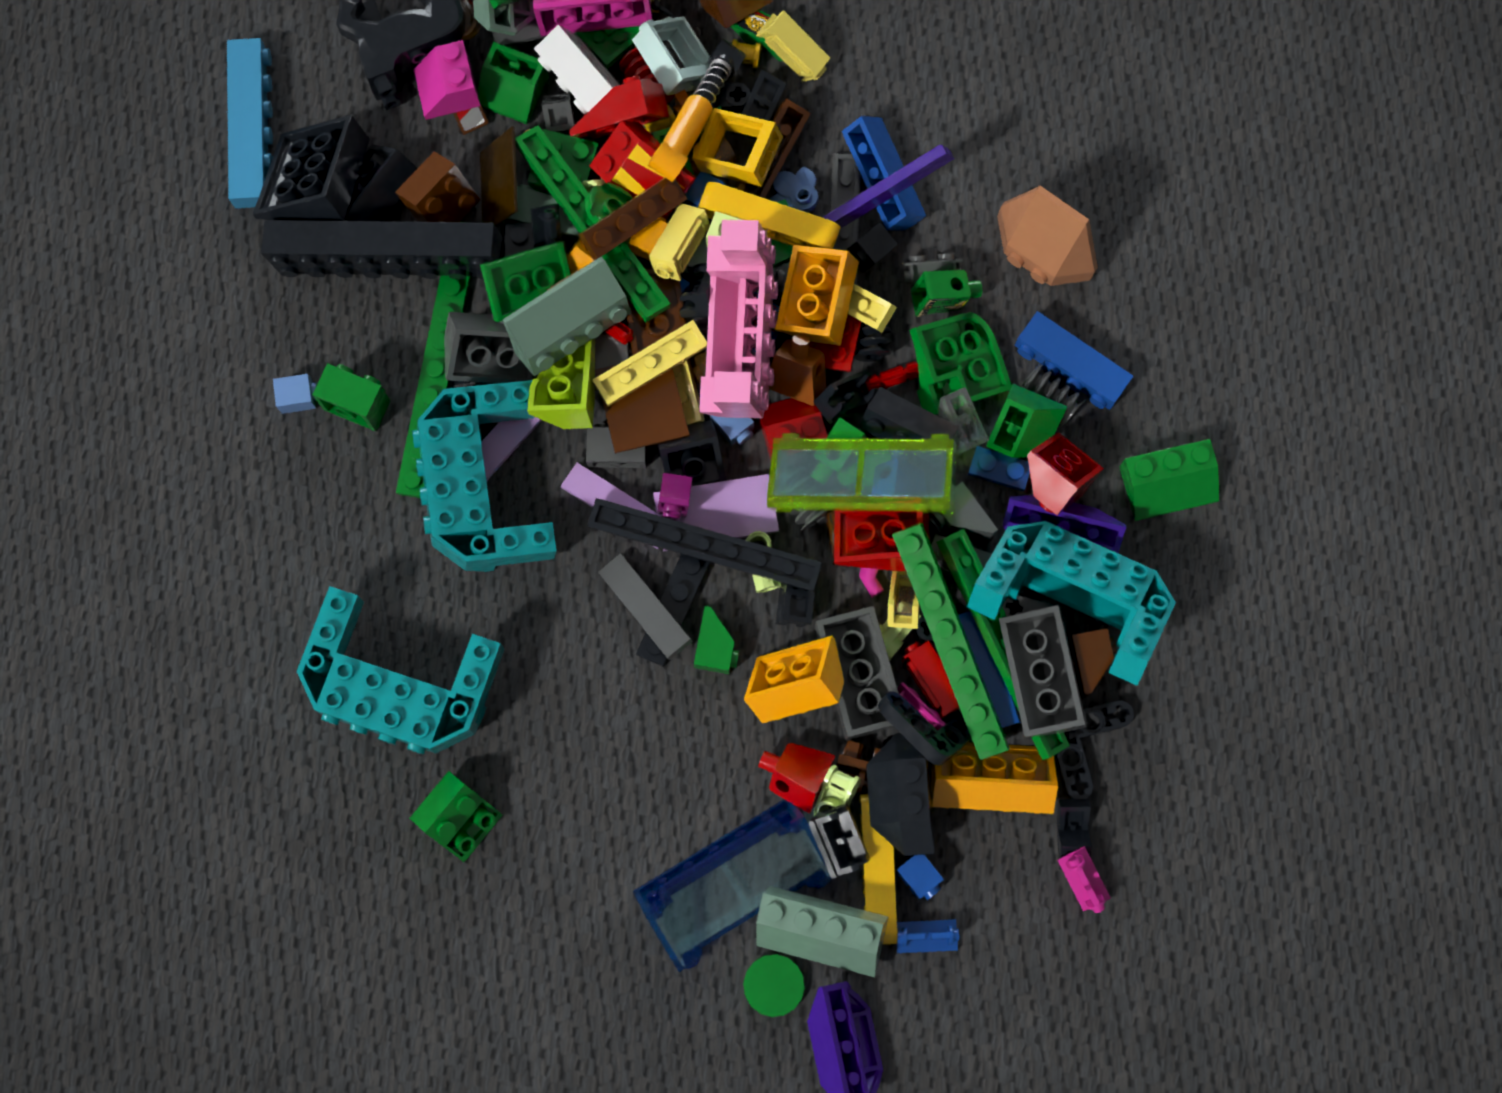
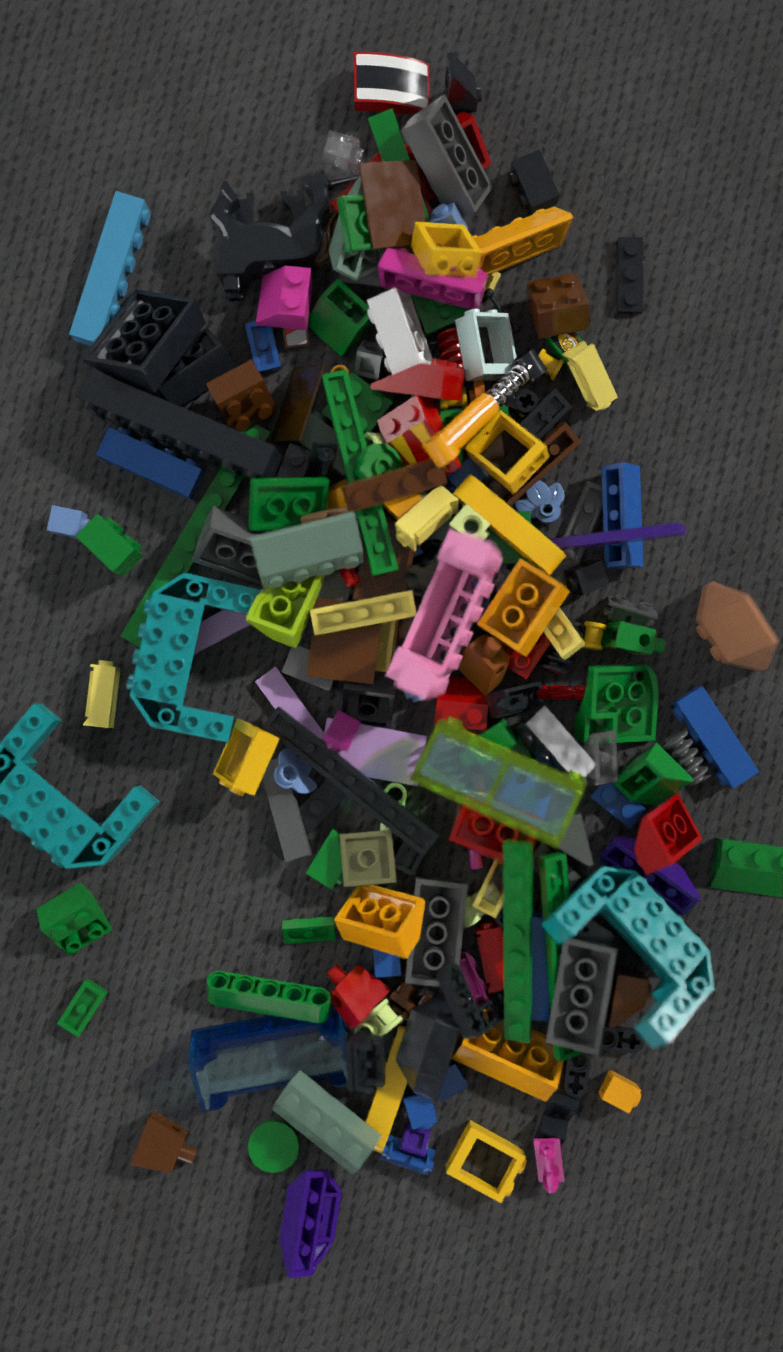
camera: 25 degrees right, 10 degrees up
(363, 300) = (151, 463): none -> blue brick
(399, 561) = (102, 695): none -> light yellow window
(439, 138) = (263, 347): none -> blue plate
(500, 912) = (82, 1007): none -> green plate
(581, 563) = (245, 758): none -> yellow window
(639, 563) = (296, 772): none -> medium blue plate
(648, 1031) = (162, 1145): none -> reddish brown torso
(704, 815) = (268, 996): none -> green beam
(721, 728) = (308, 930): none -> green plate
(755, 620) = (368, 858): none -> olive bracket
(818, 727) = (386, 964): none -> blue brick
(903, 301) = (593, 635): none -> yellow bush
(928, 916) = (414, 1141): none -> dark purple tile
(944, 832) = (454, 1082): none -> dark blue brick
(984, 904) = (459, 1154): none -> yellow window
(1130, 772) = (620, 1091): none -> light orange brick

